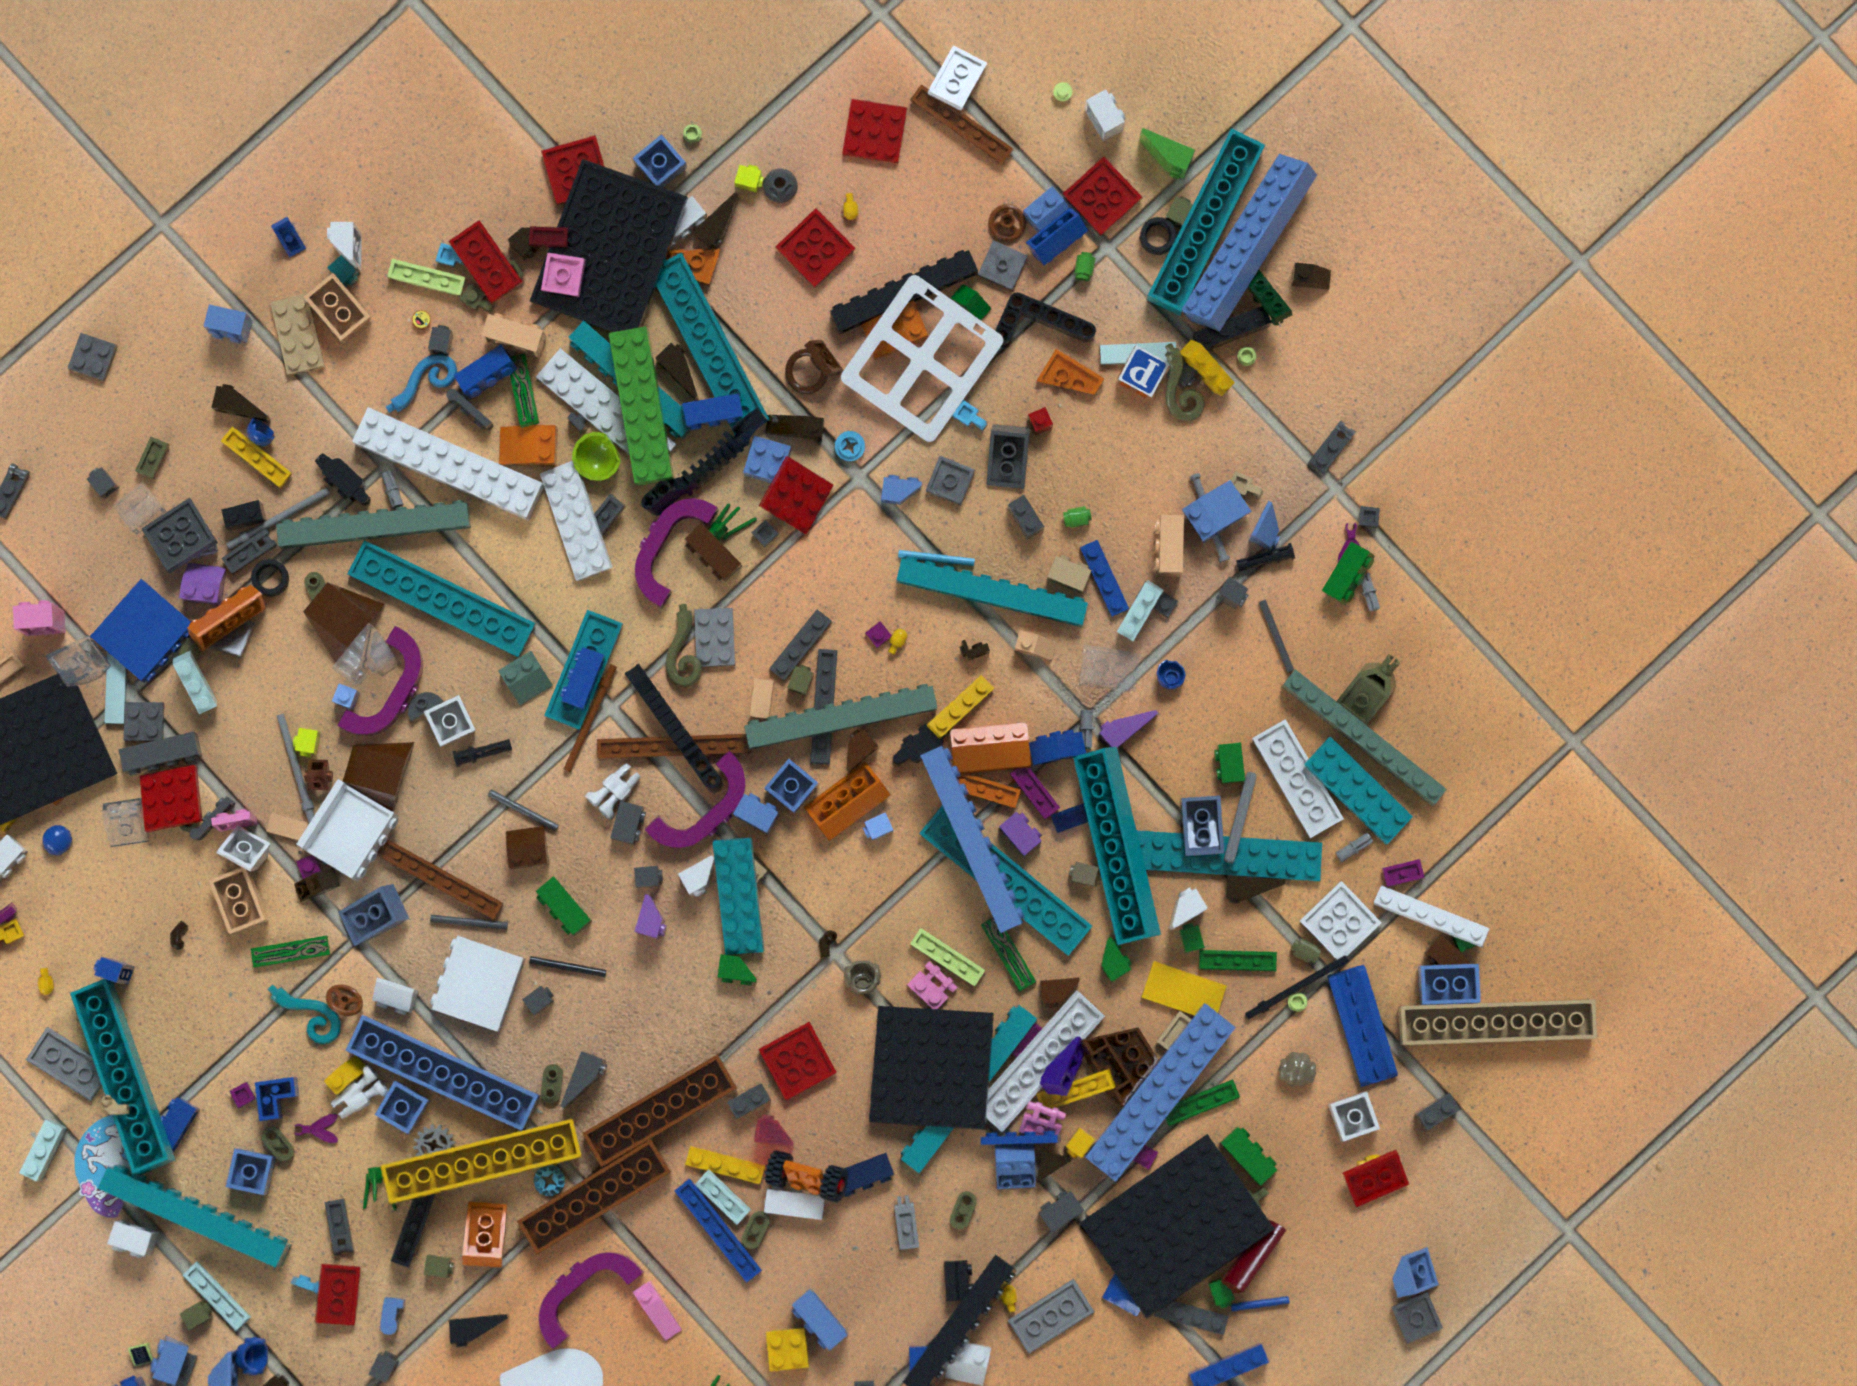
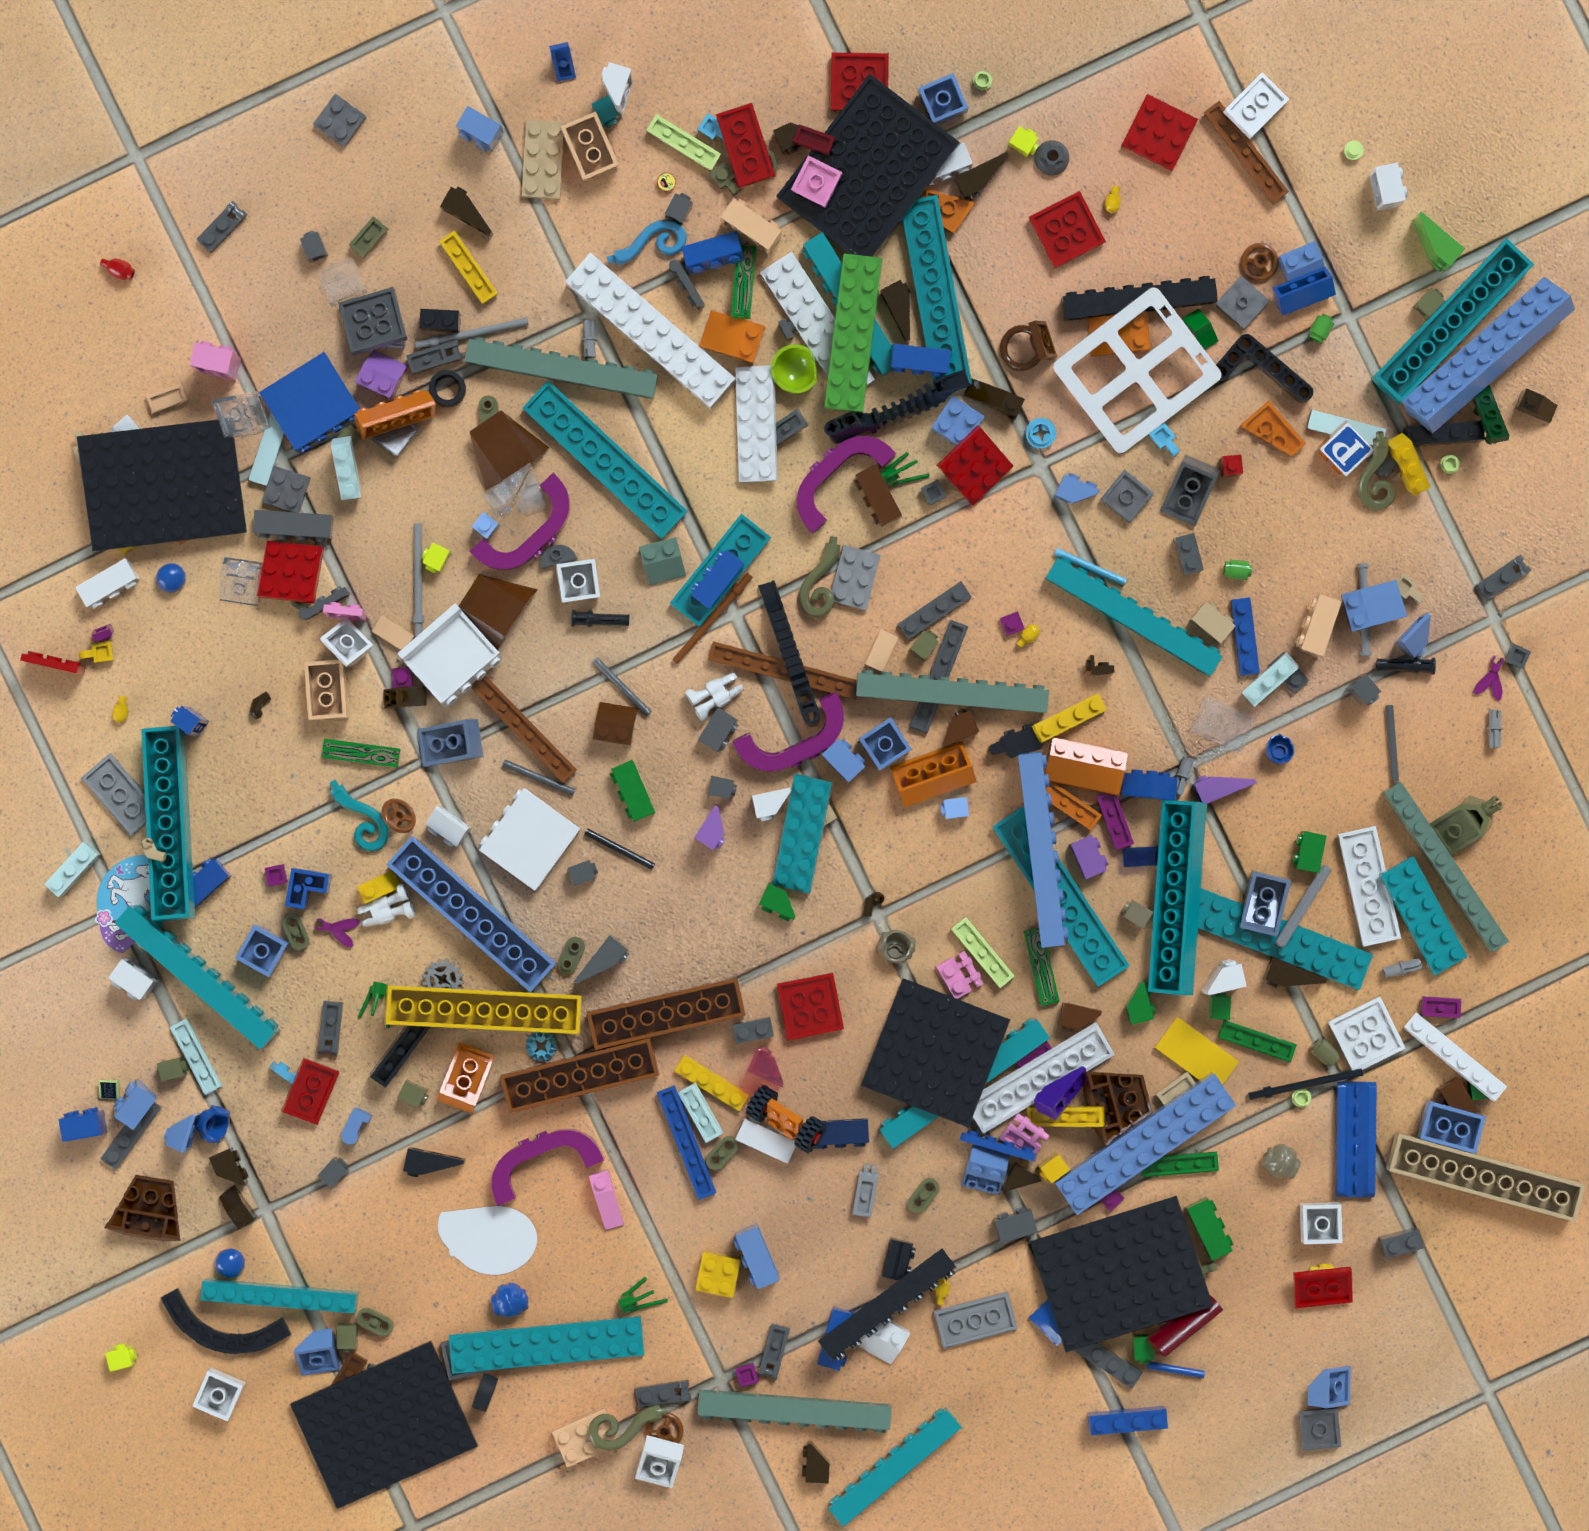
camera: 15 degrees right, 5 degrees up
(259, 433) = (478, 245): blue hair -> none
(318, 775) = (435, 596): copper brick -> none
(344, 478) = (546, 313): black hinge -> none
(402, 1107) = (424, 934): medium blue brick -> none
(1035, 645) = (1158, 680): light nougat slope -> none
(1102, 196) = (1359, 264): red plate -> none
(1143, 235) = (1415, 320): black tyre -> none
(1348, 573) = (1481, 705): green brick -> none

